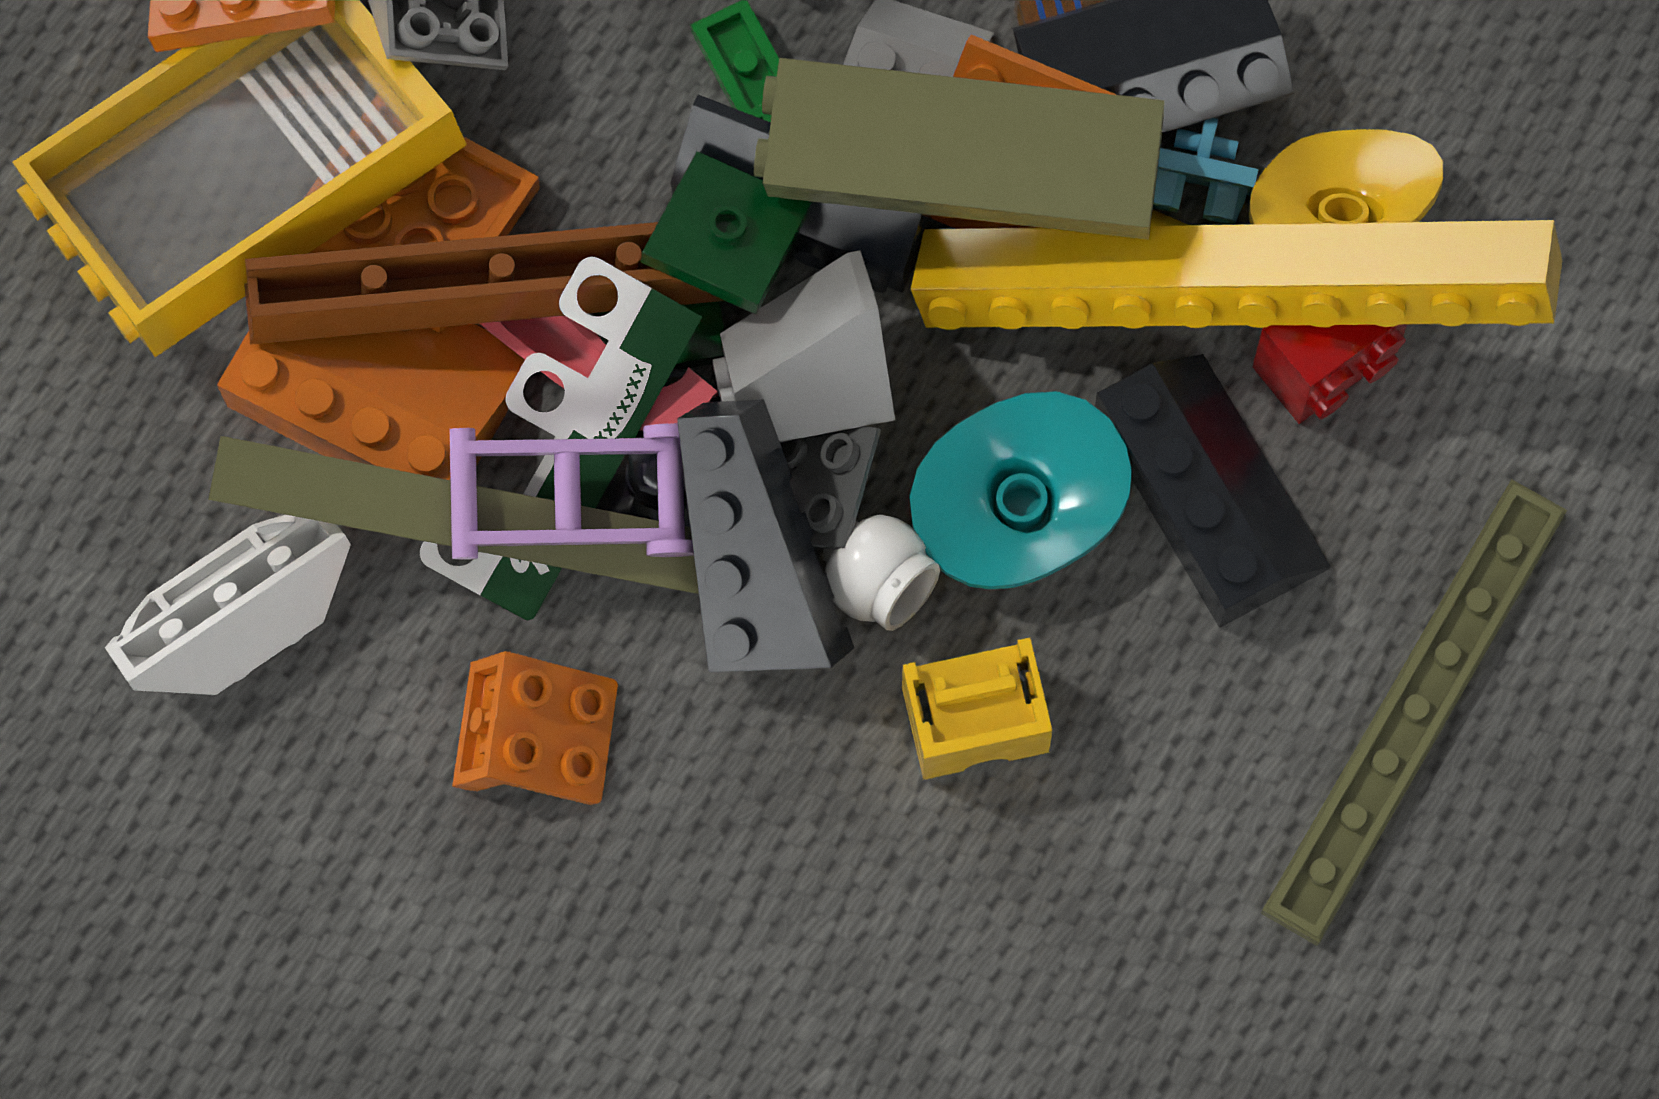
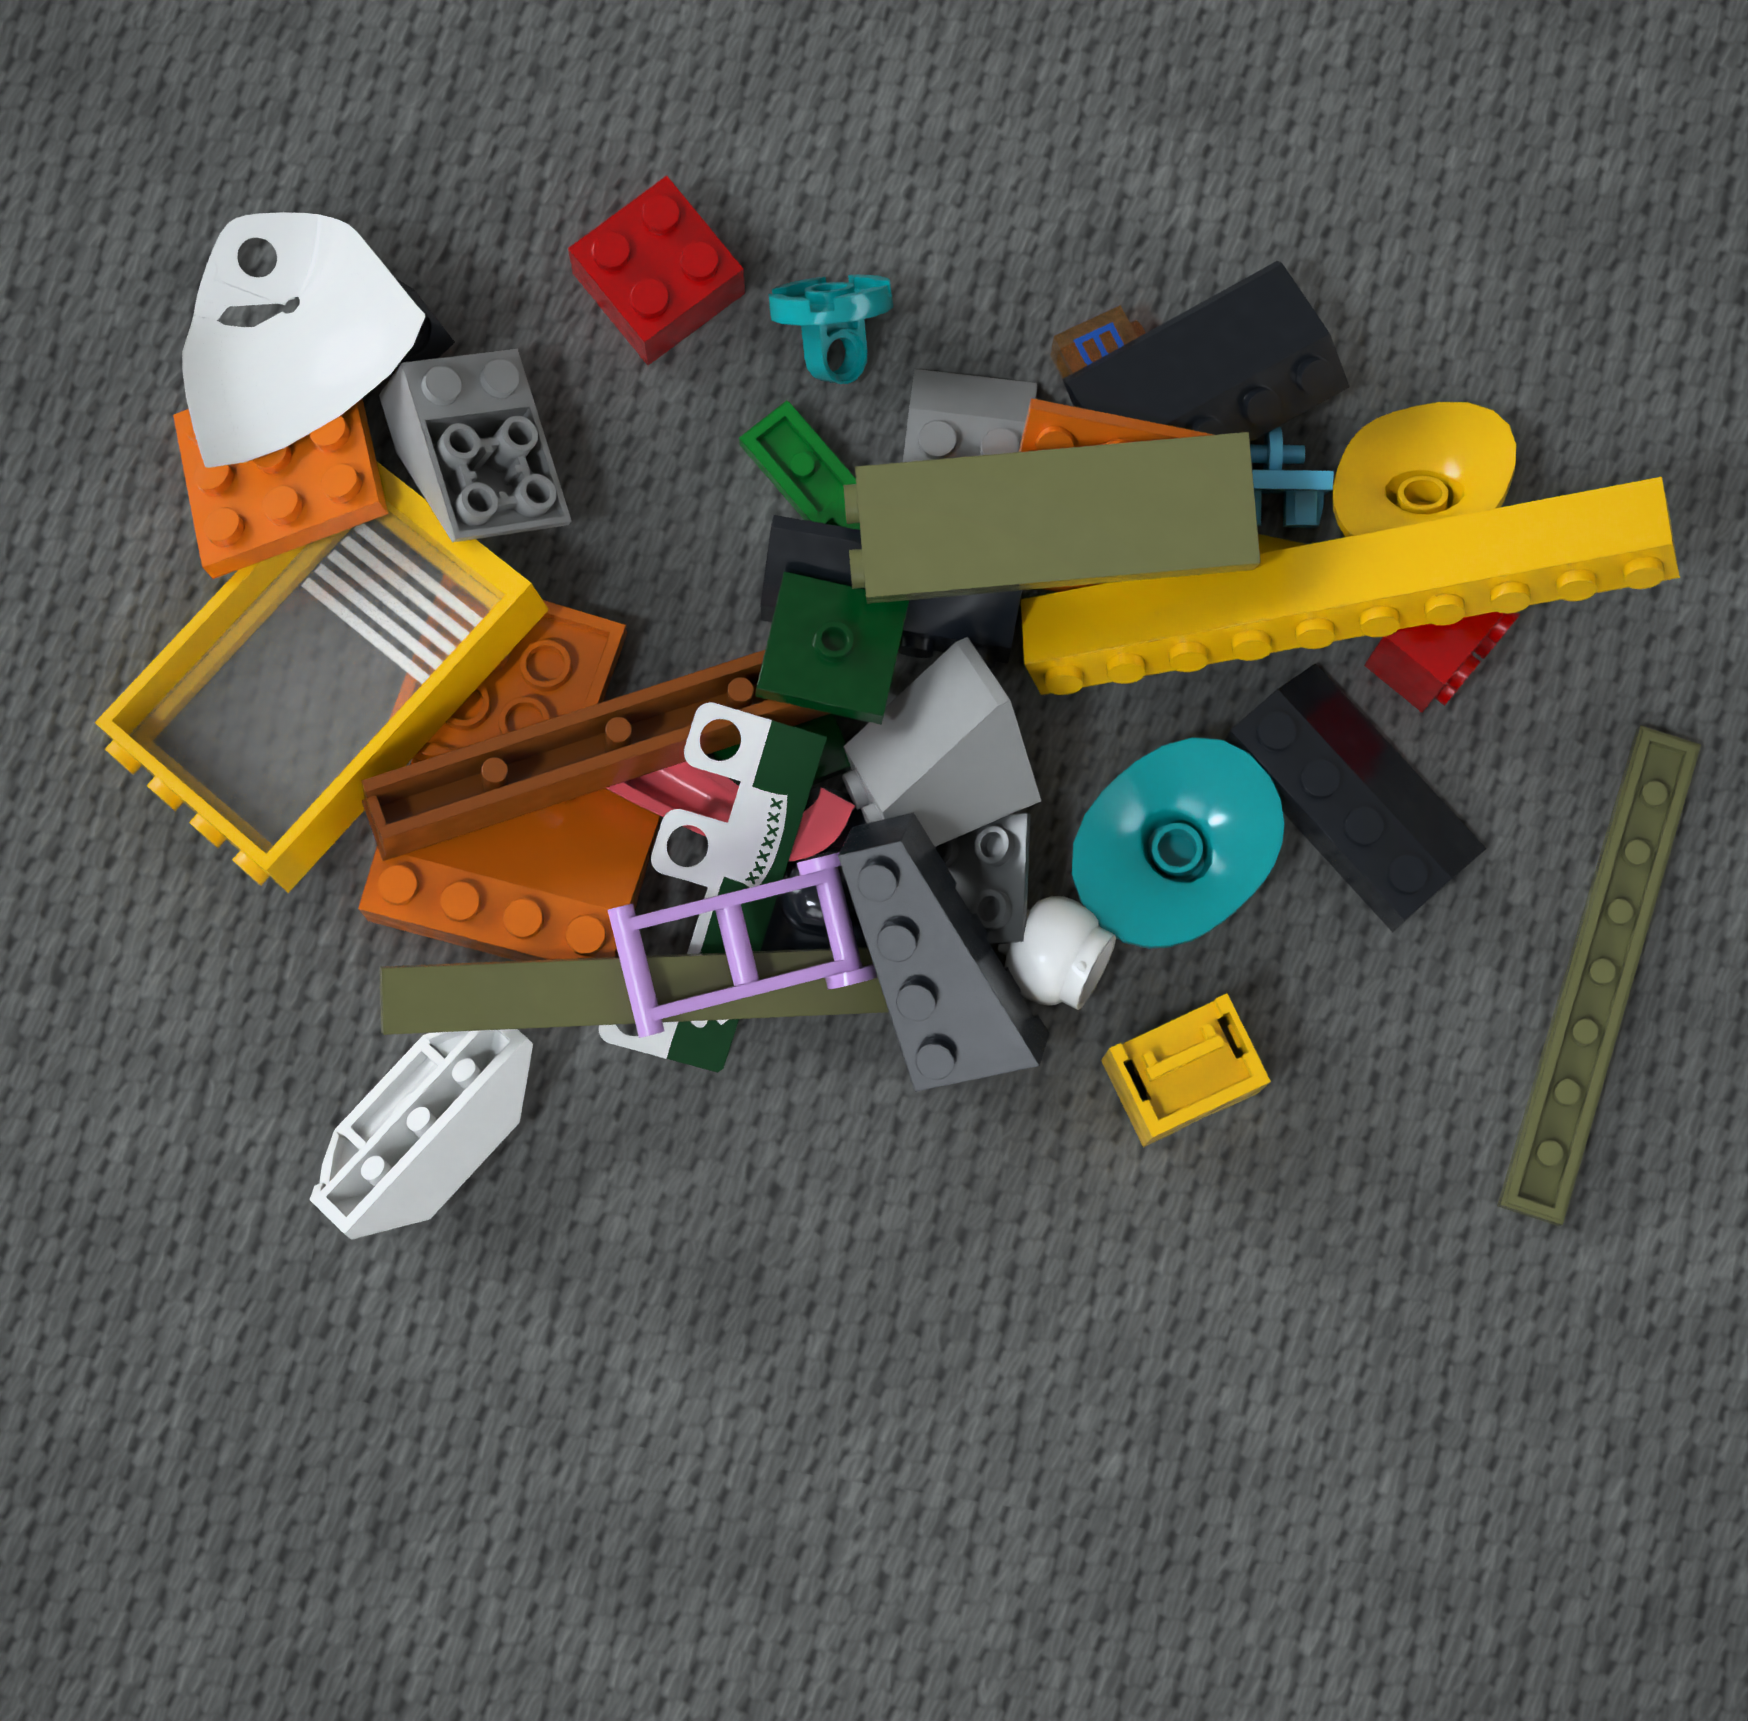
camera: 20 degrees left, 5 degrees up
(535, 728) = (752, 1182): orange bracket -> none

